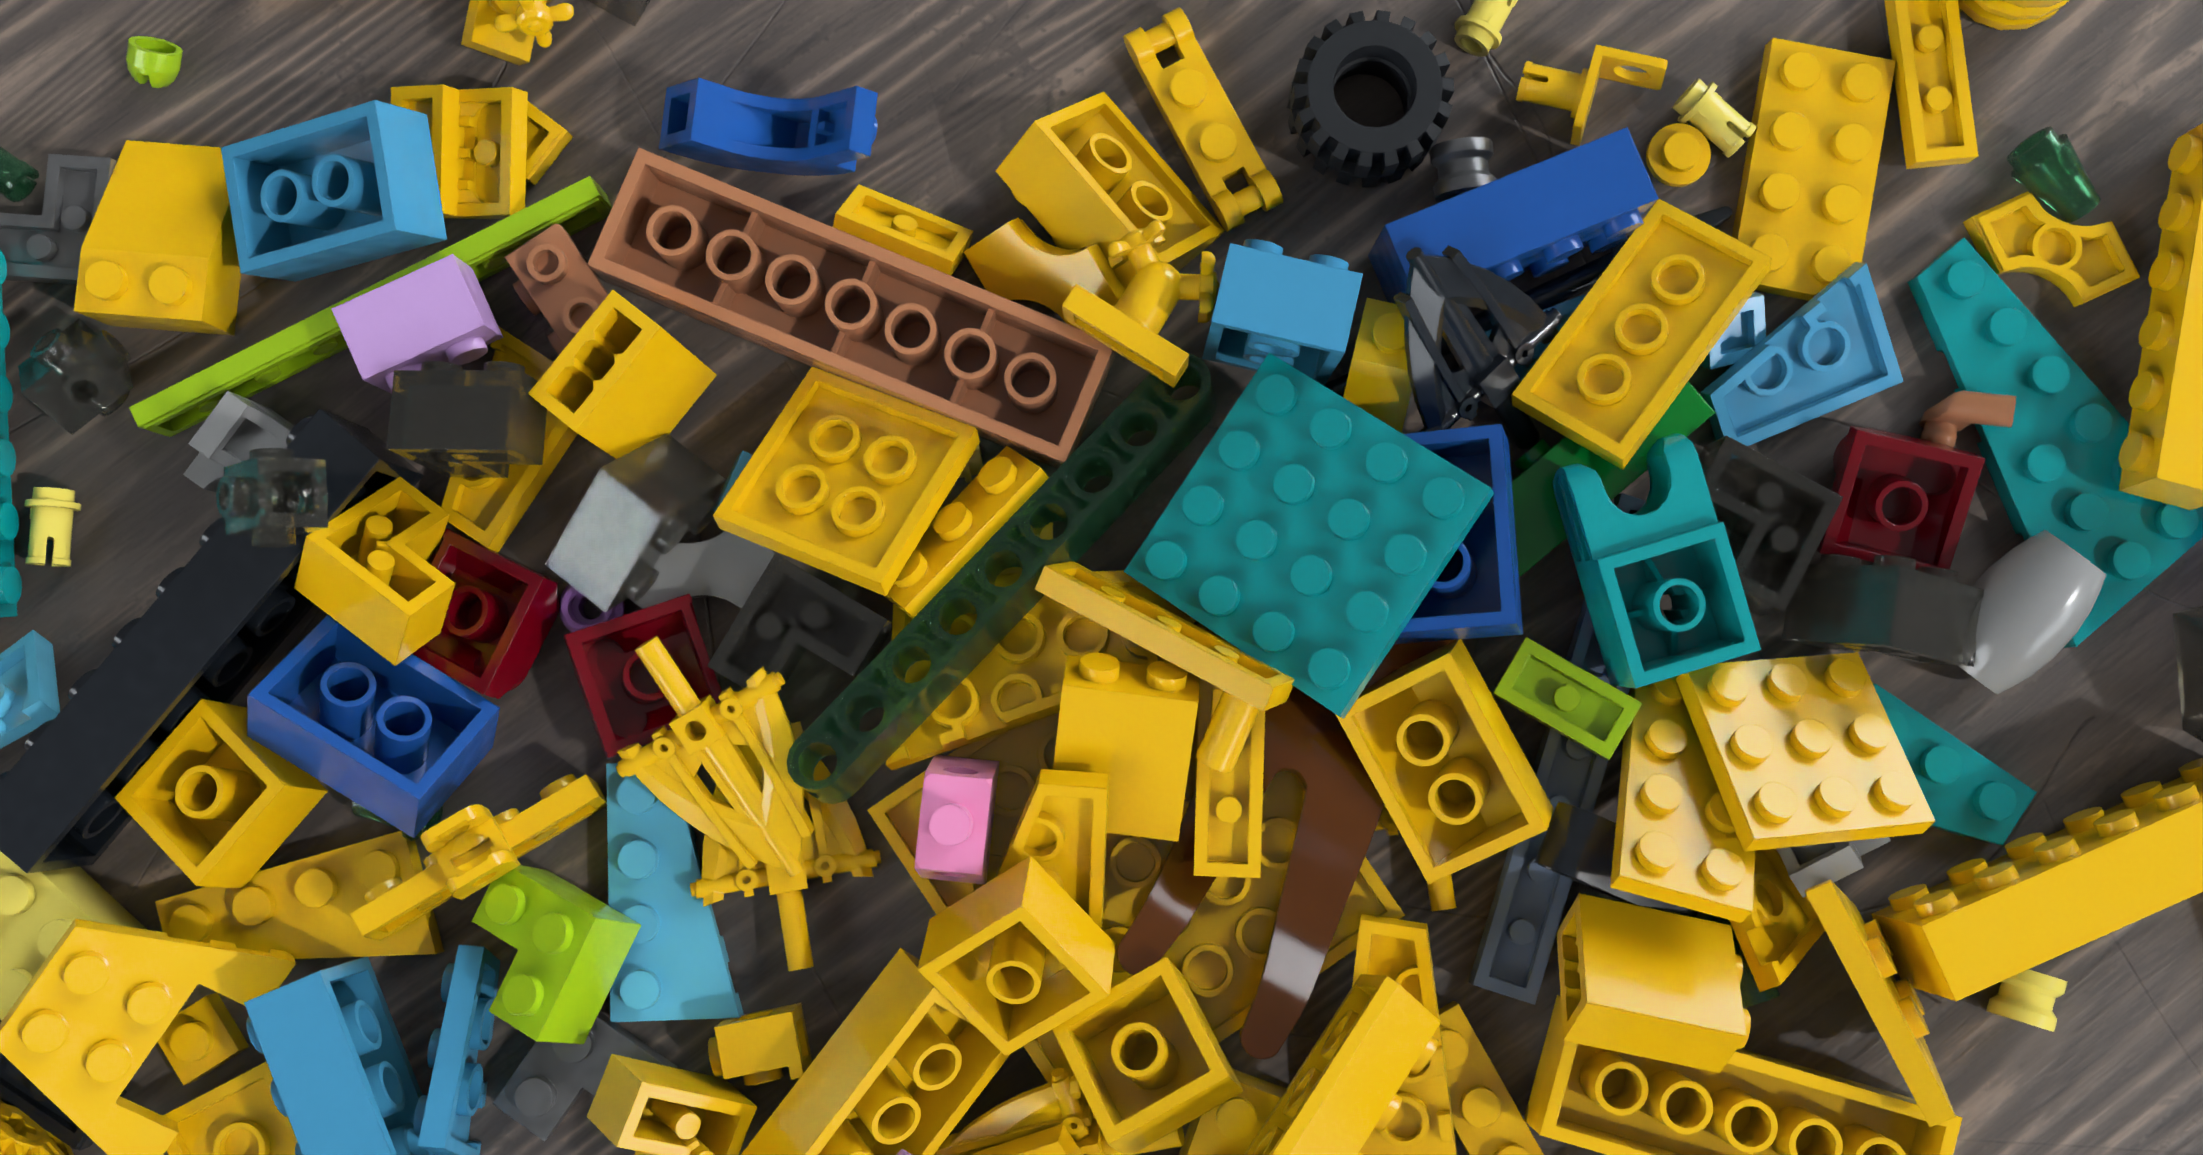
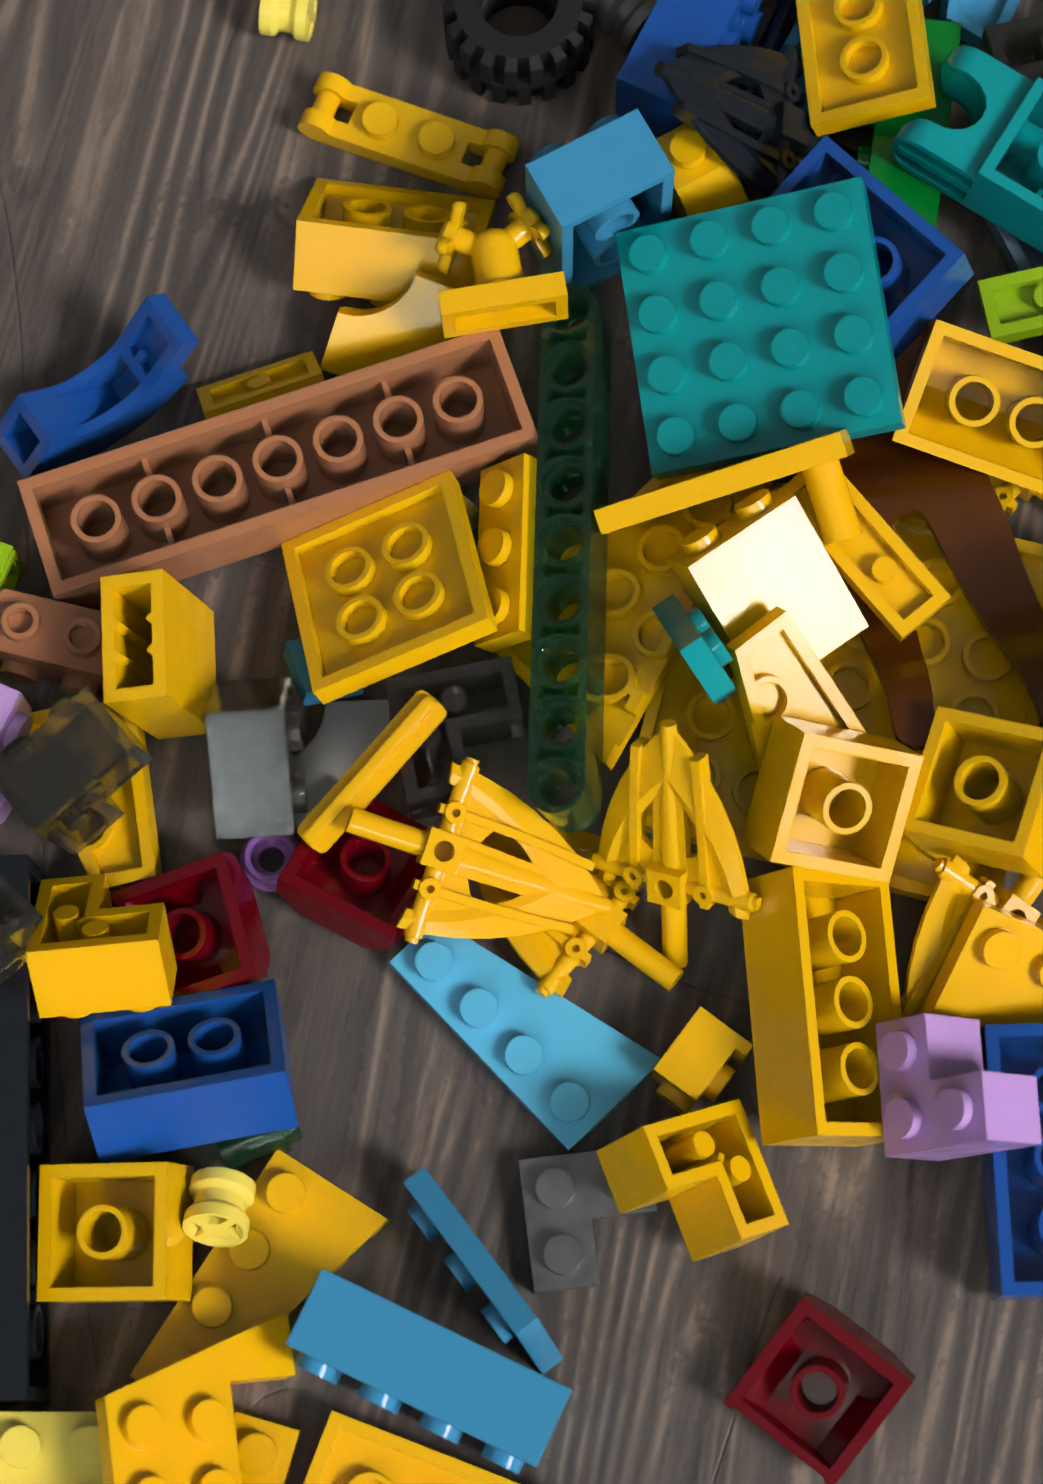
camera: 40 degrees left, 10 degrees down
(312, 842) = (219, 1207): none -> light yellow wheel
(474, 851) = (352, 1099): yellow plate -> none
(564, 957) = (489, 1107): lime brick -> none
(700, 618) = (372, 770): none -> yellow axle
(856, 895) = (680, 788): none -> yellow bar
(956, 819) = (708, 733): bright pink torso -> none
(1017, 750) = (698, 647): none -> teal wing

